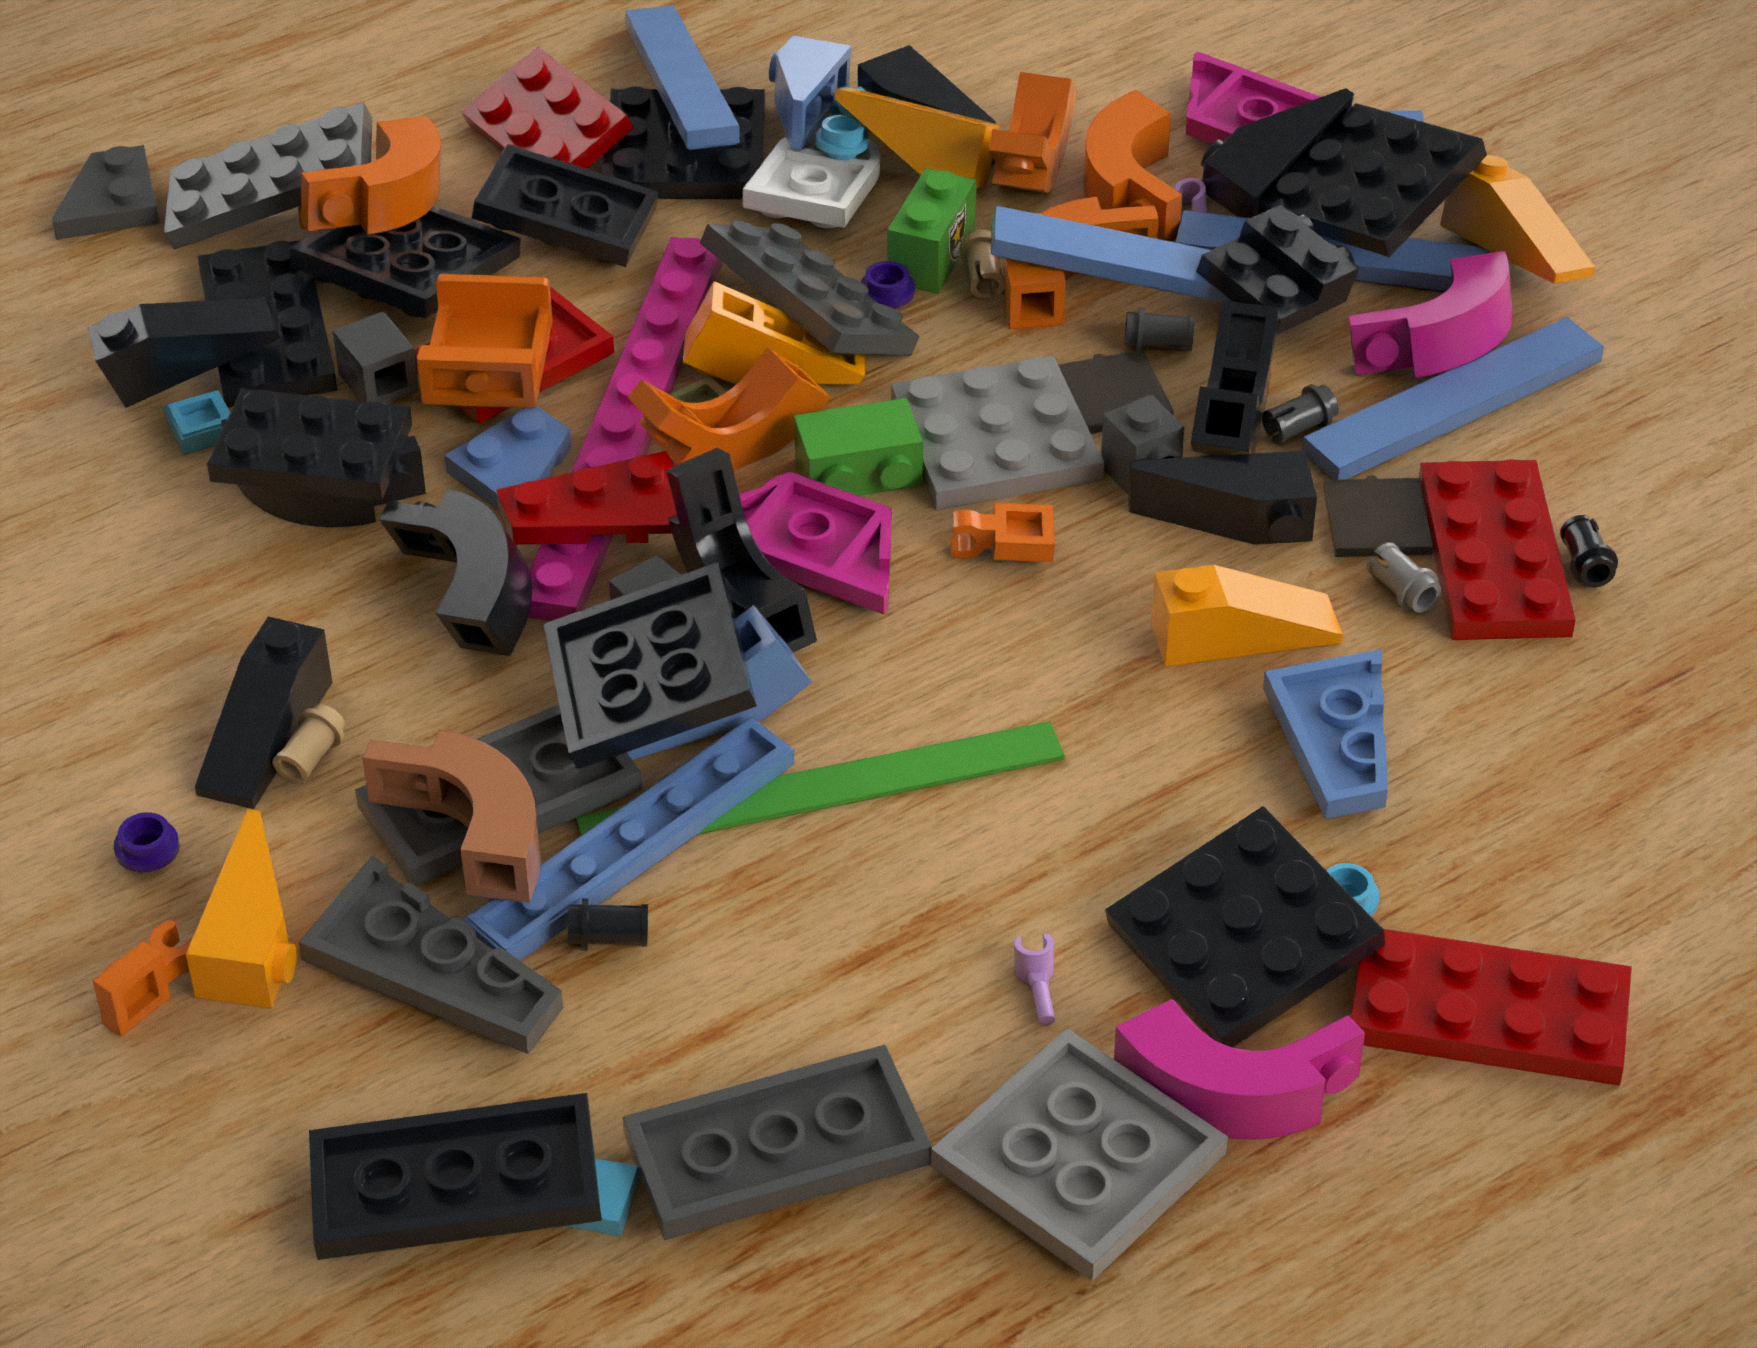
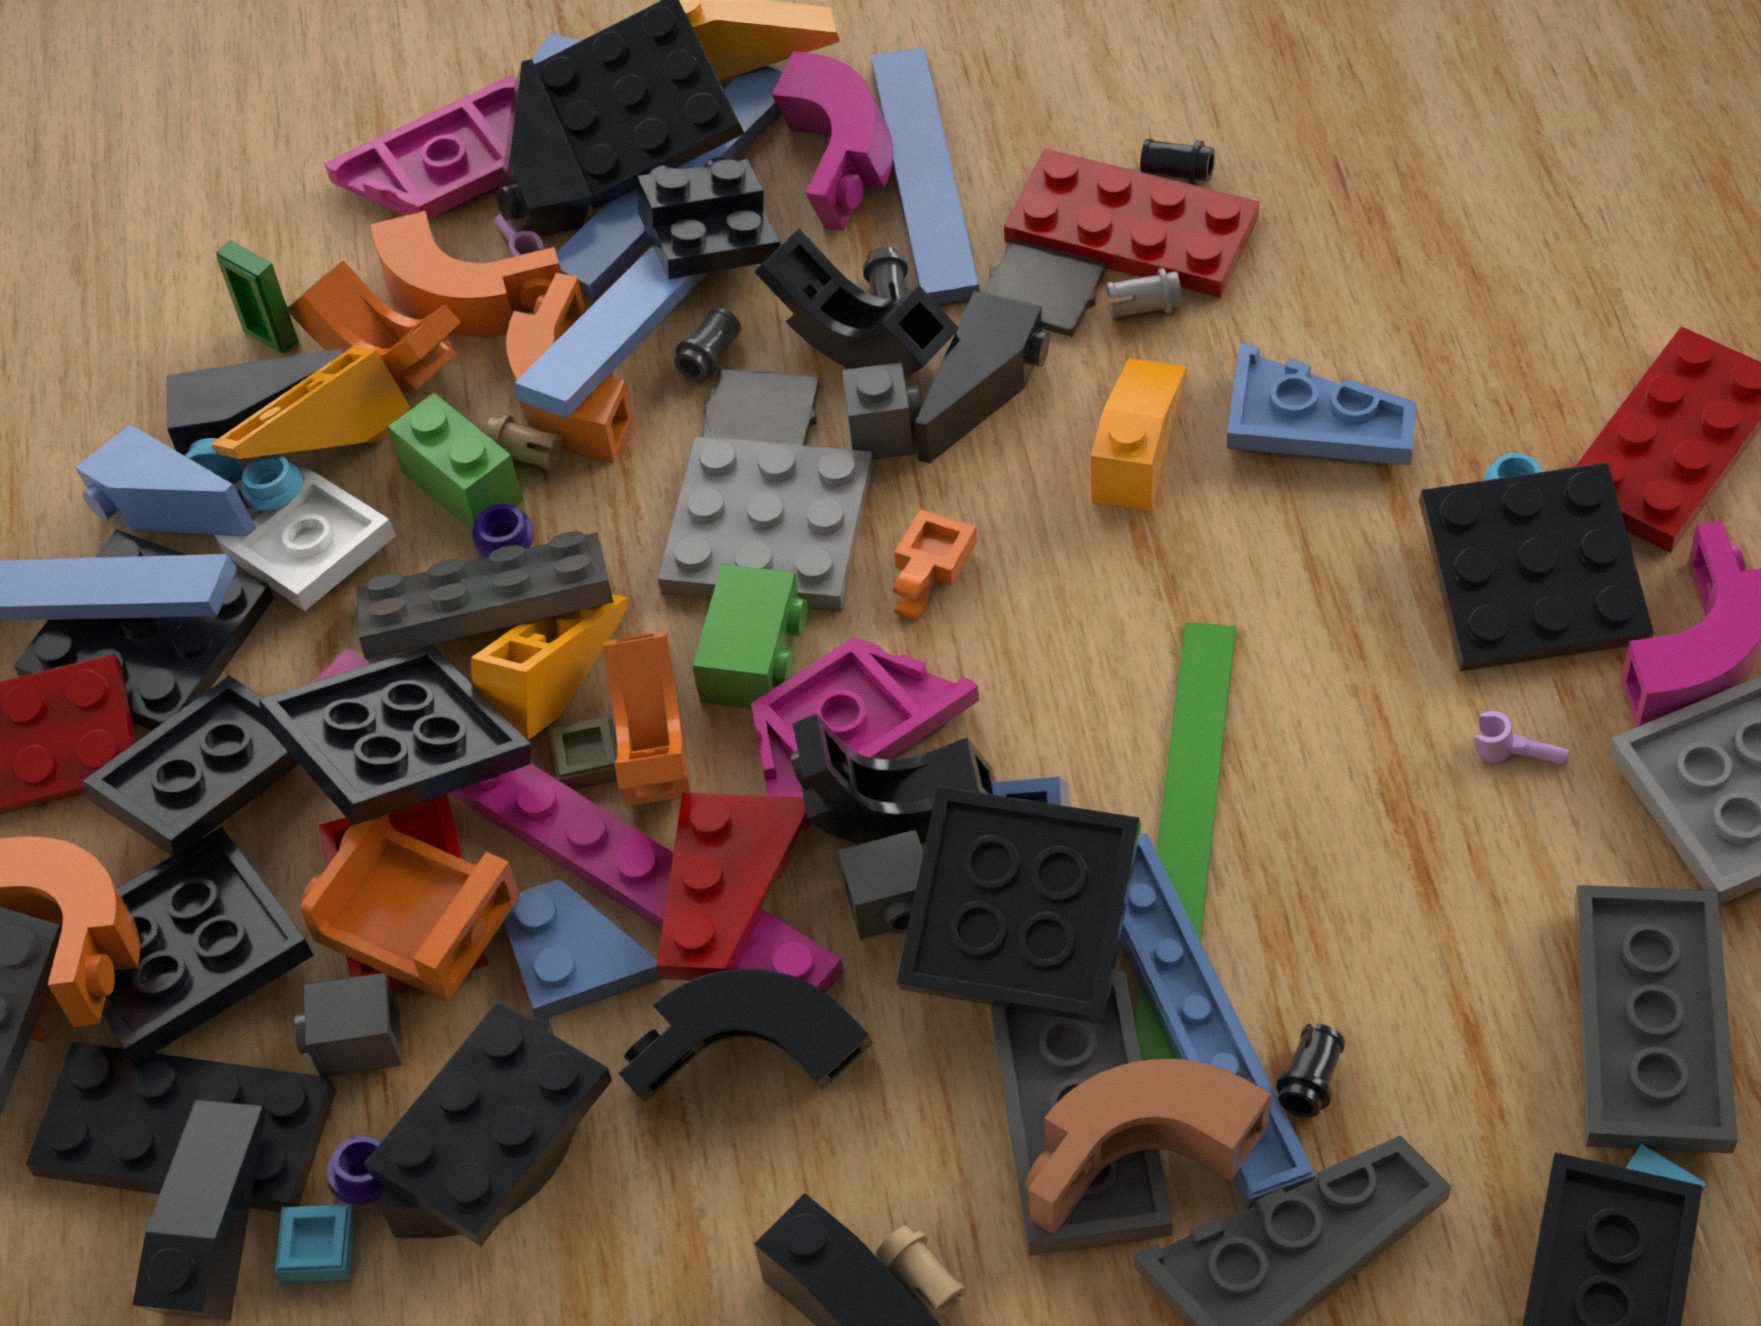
camera: 60 degrees left, 10 degrees up
(620, 268) = (394, 733): none -> black plate
(1016, 52) = (257, 296): none -> green tile

